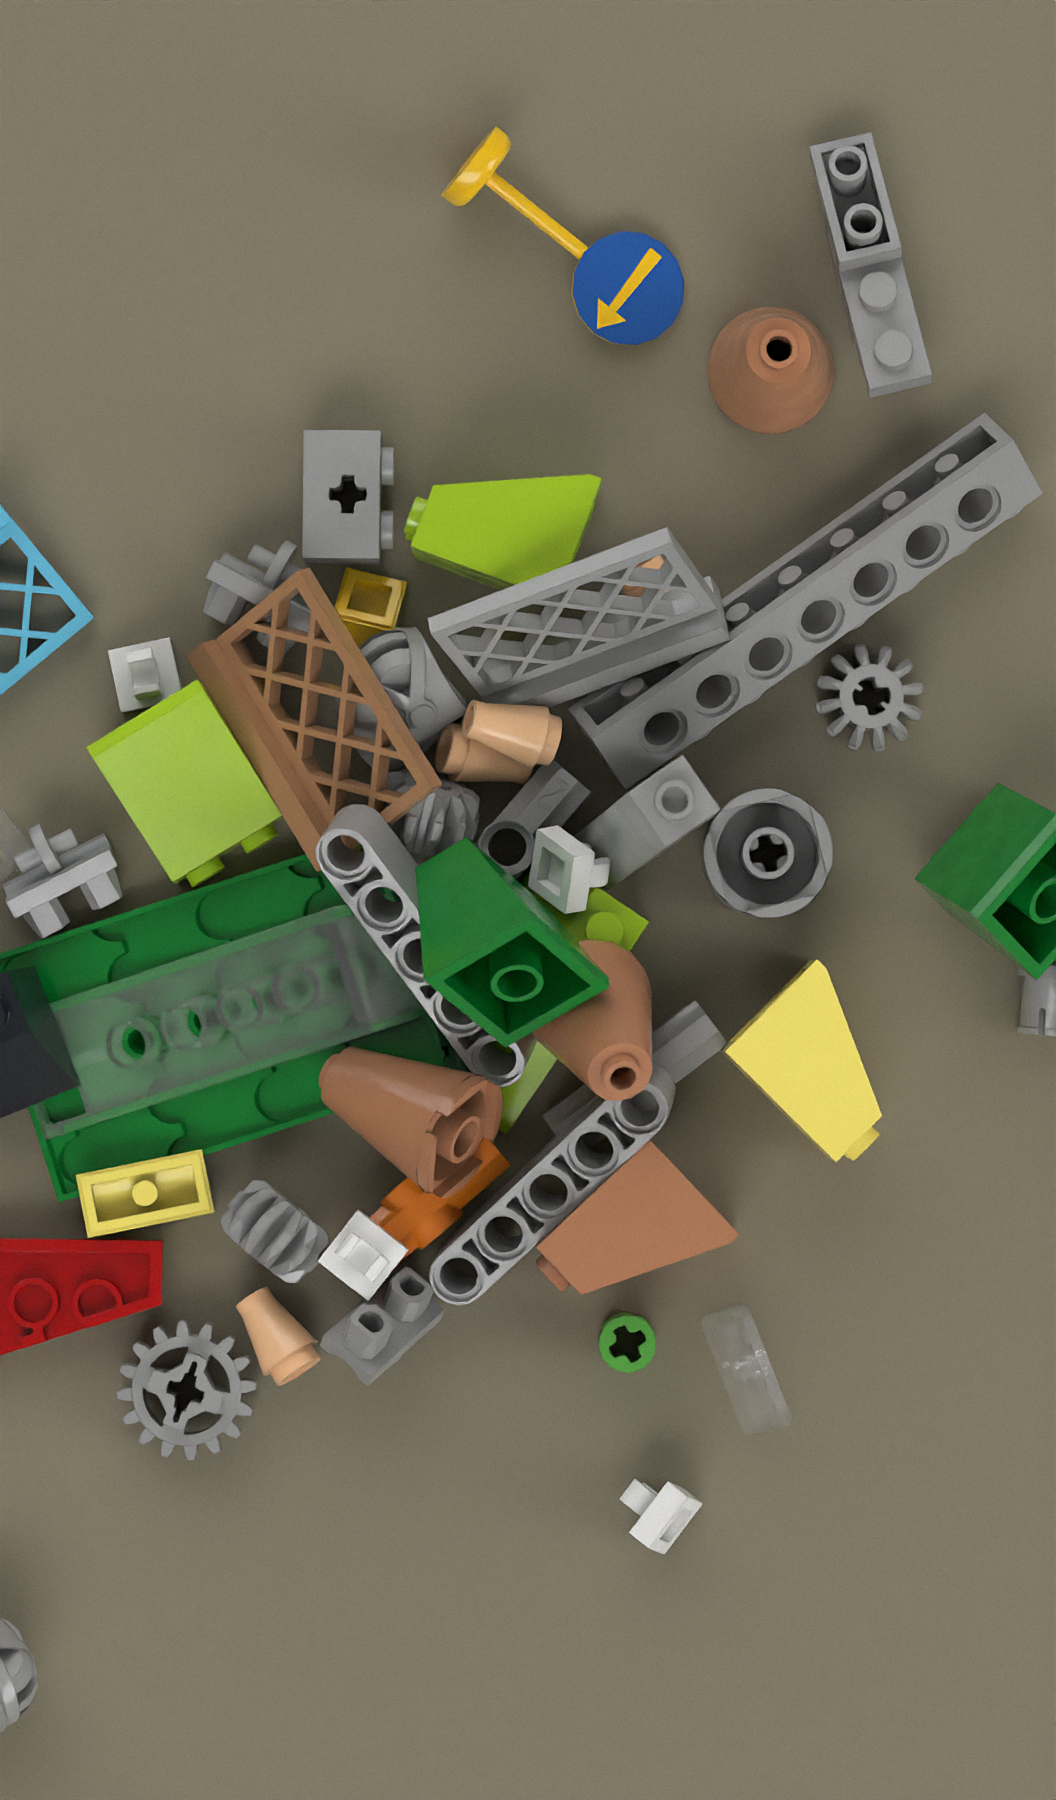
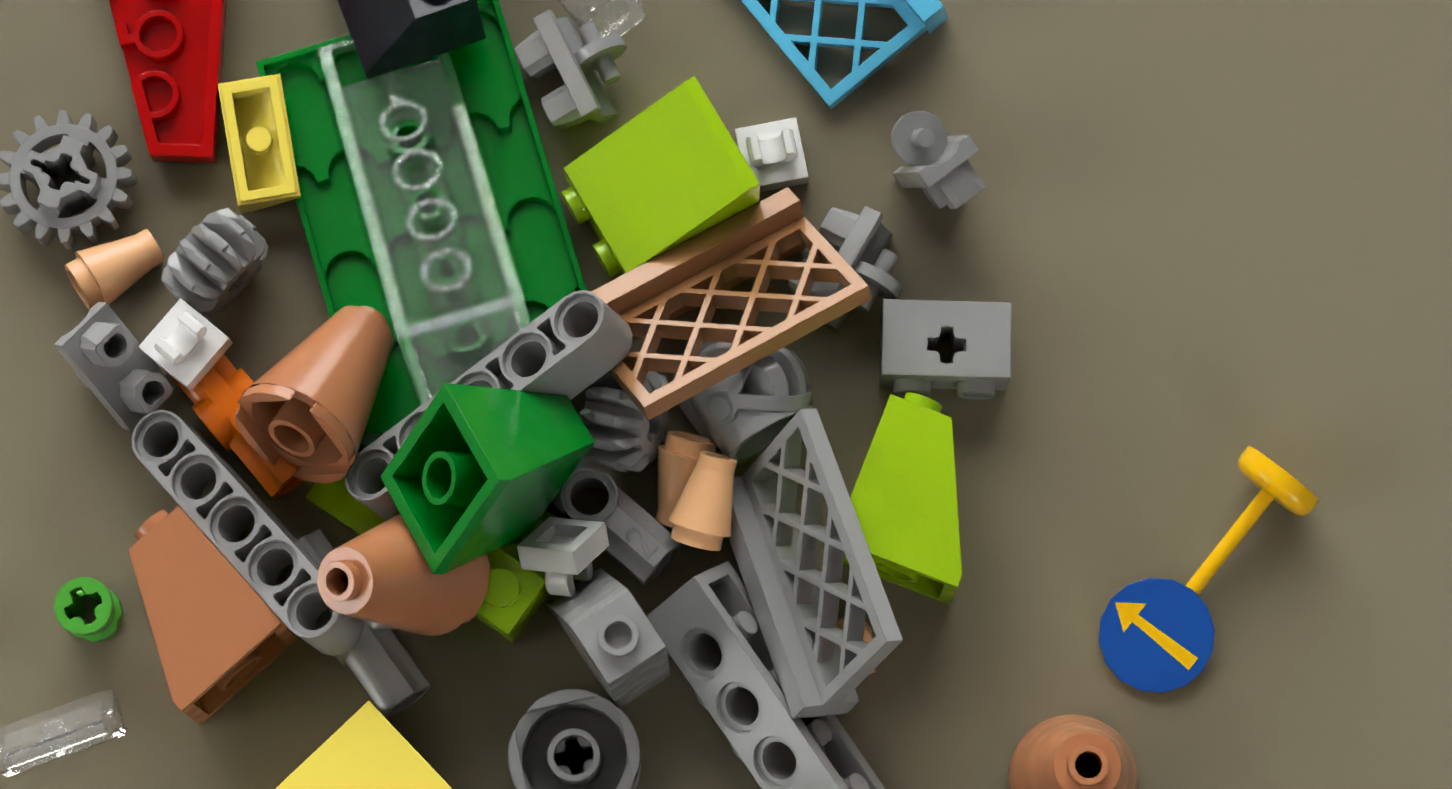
camera: 90 degrees right, 10 degrees down
(158, 506) = (935, 159): none -> light grey hips
(369, 603) = (836, 368): yellow slope -> none

